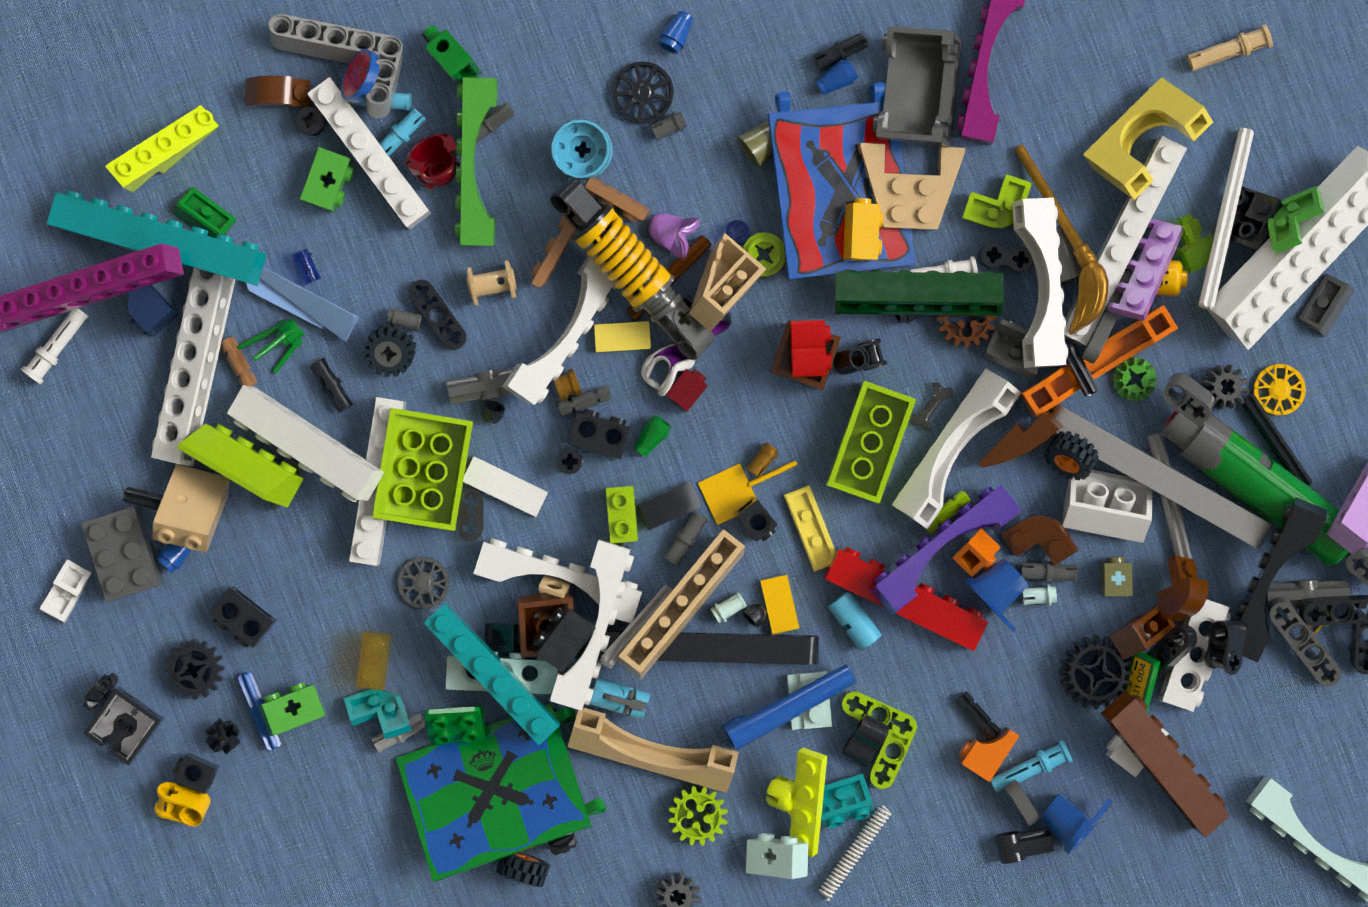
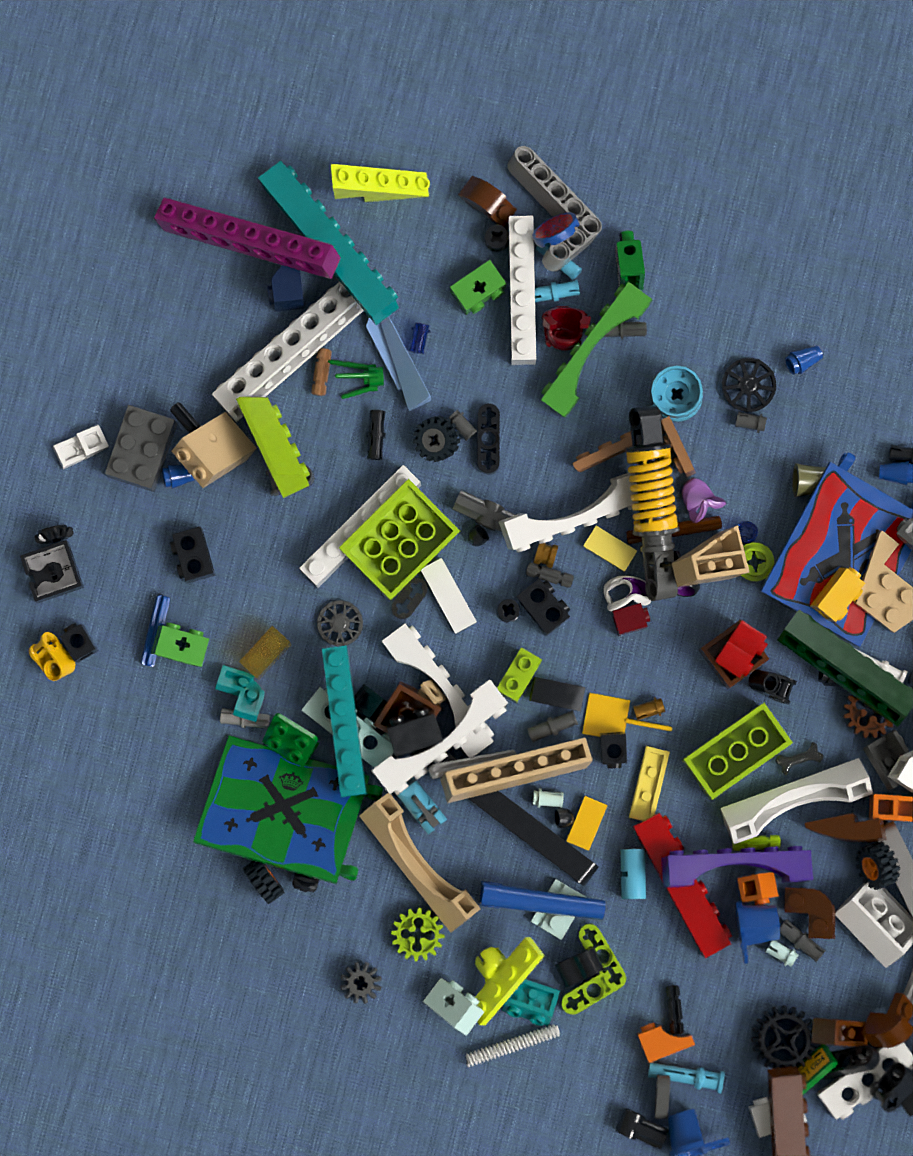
camera: 40 degrees right, 5 degrees down
(46, 355) = (190, 271): white pin -> none
(199, 681) = (129, 579): black gear -> none
(201, 212) = (372, 245): green slope -> none
(222, 736) = (117, 629): black gear -> none
(305, 443) = (329, 461): white brick -> none
(488, 284) = (540, 441): tan hose -> none
(652, 435) = (581, 634): green cone -> none
(1116, 577) = (848, 980): olive brick -> none

